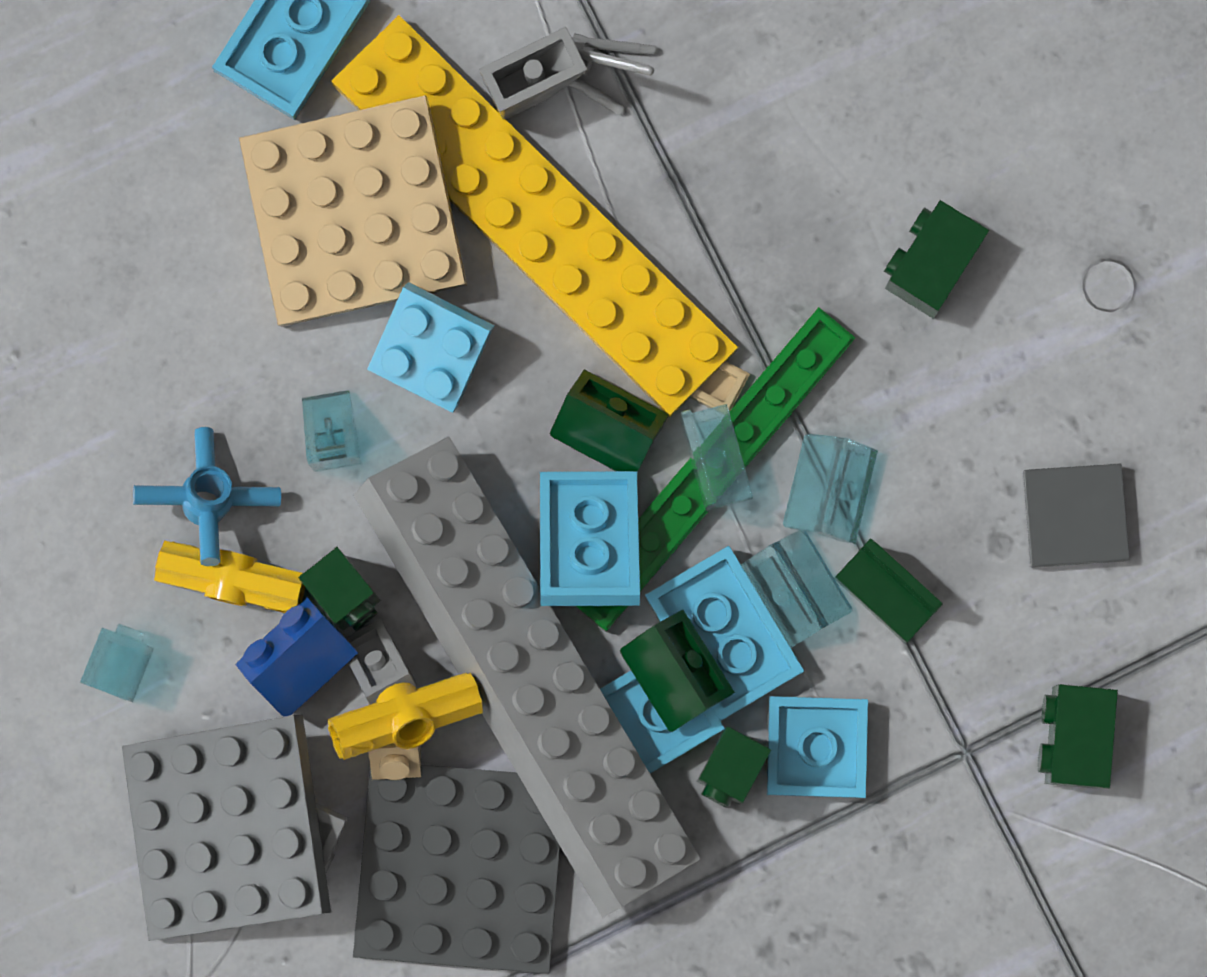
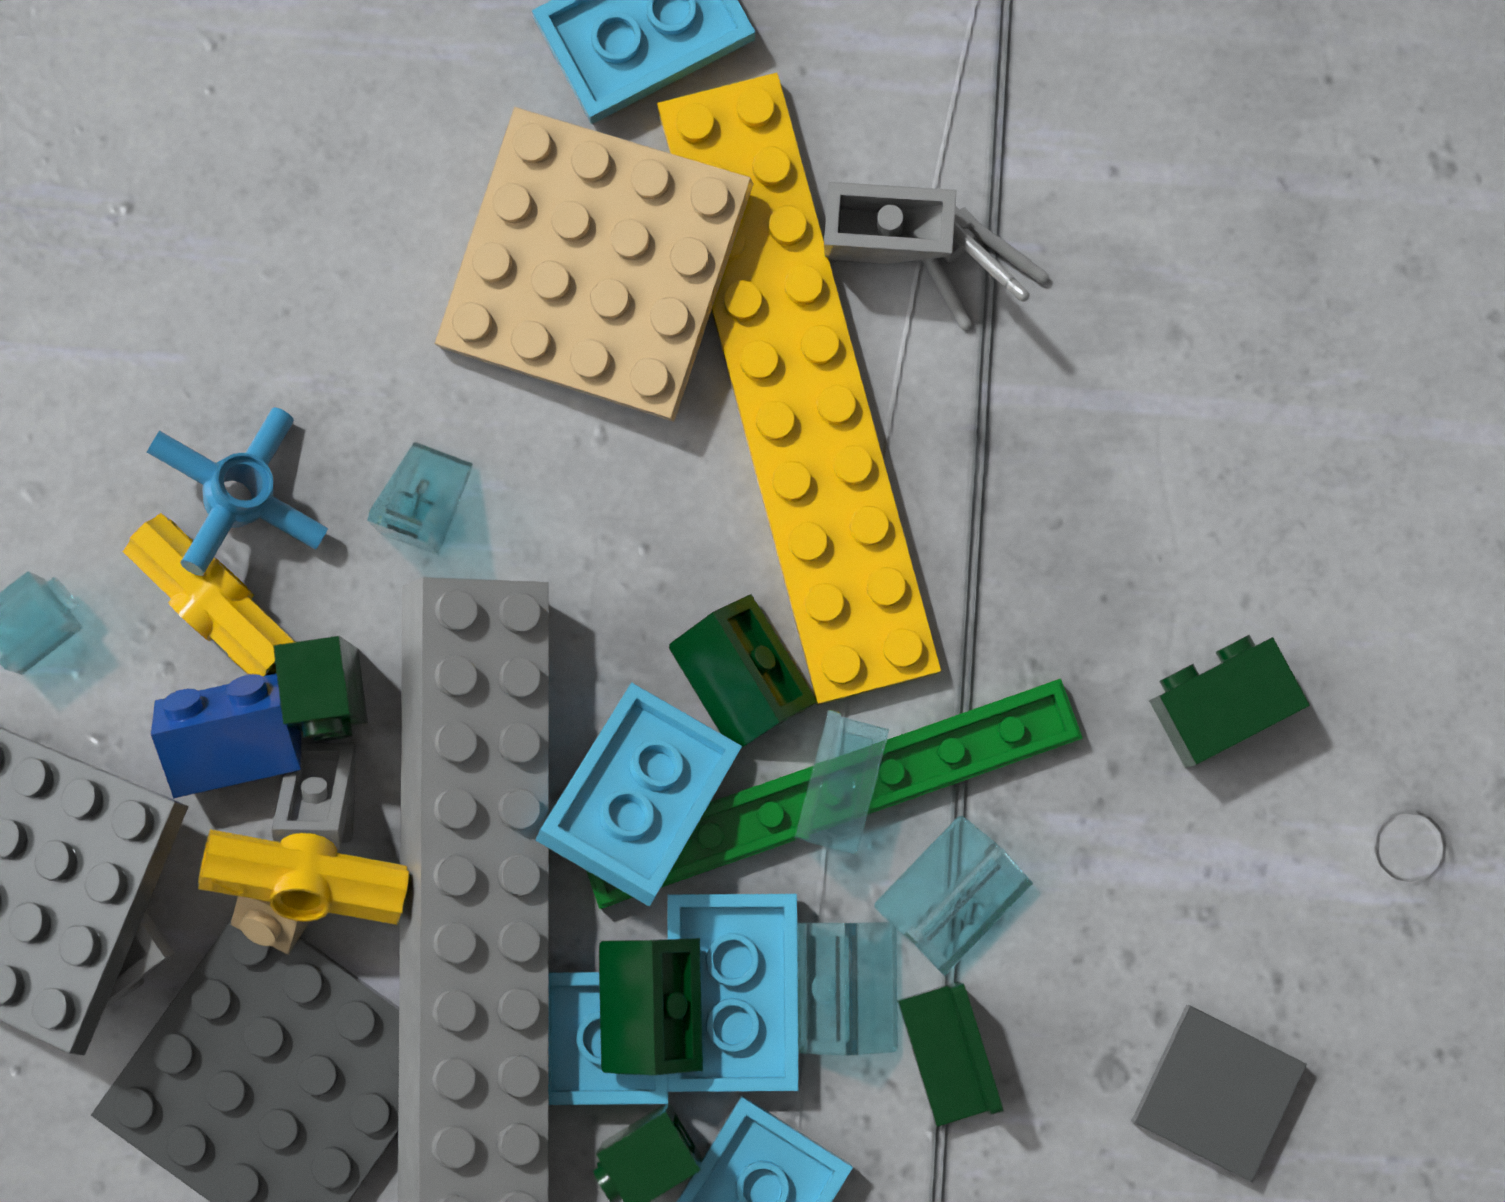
camera: 25 degrees right, 0 degrees up
(430, 347) = (590, 468): medium azure plate -> none
(722, 387) = (896, 706): tan tile -> none

